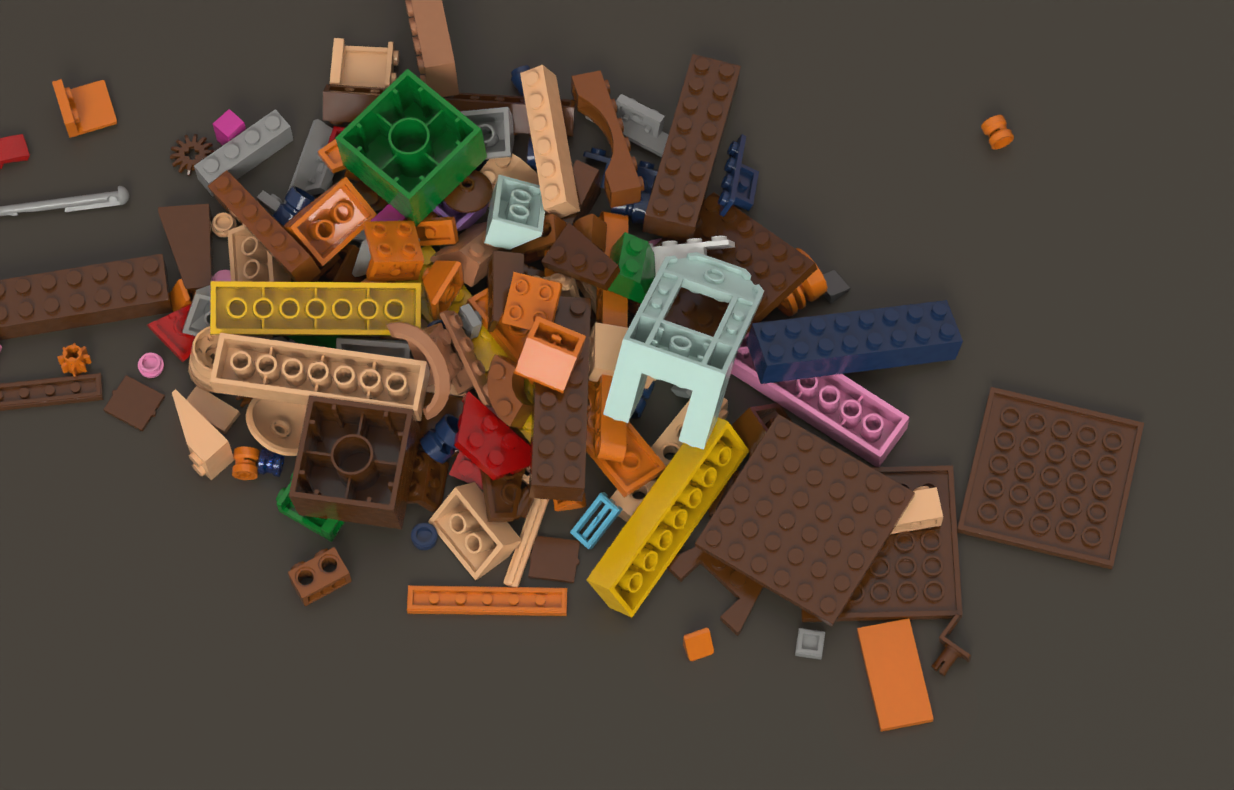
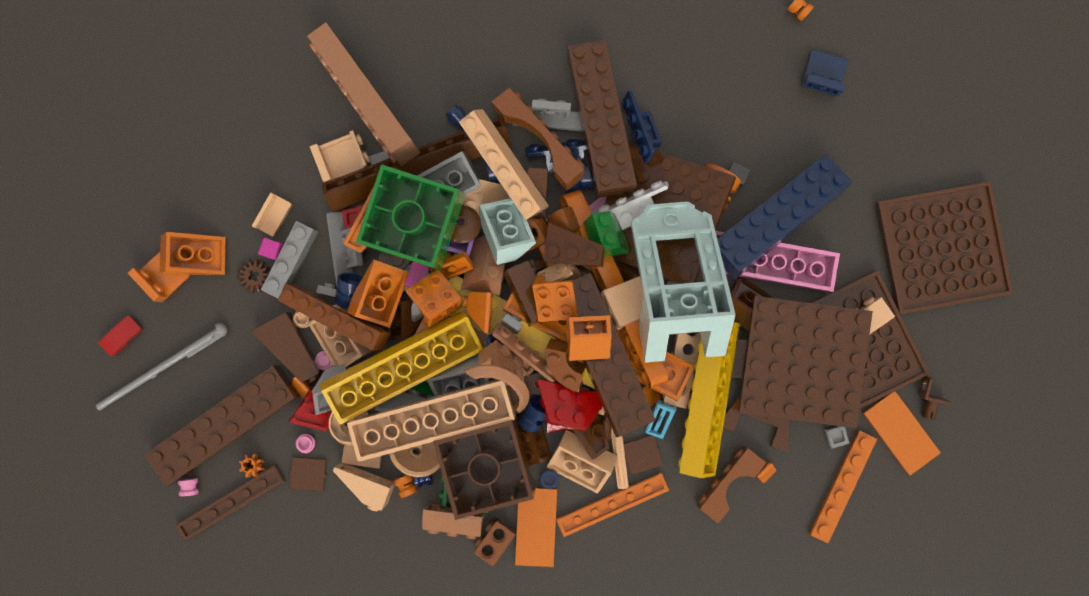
camera: 25 degrees left, 20 degrees up
(134, 97) = (192, 254): none -> orange slope
(250, 95) = (272, 214): none -> light nougat panel
(281, 524) = (442, 520): none -> nougat slope
(379, 584) = (536, 529): none -> orange tile
(594, 487) = (651, 395): none -> orange slope
(674, 622) = (744, 464): none -> dark orange arch
(789, 707) = (842, 486): none -> orange plate
(993, 216) = (825, 73): none -> dark blue bracket

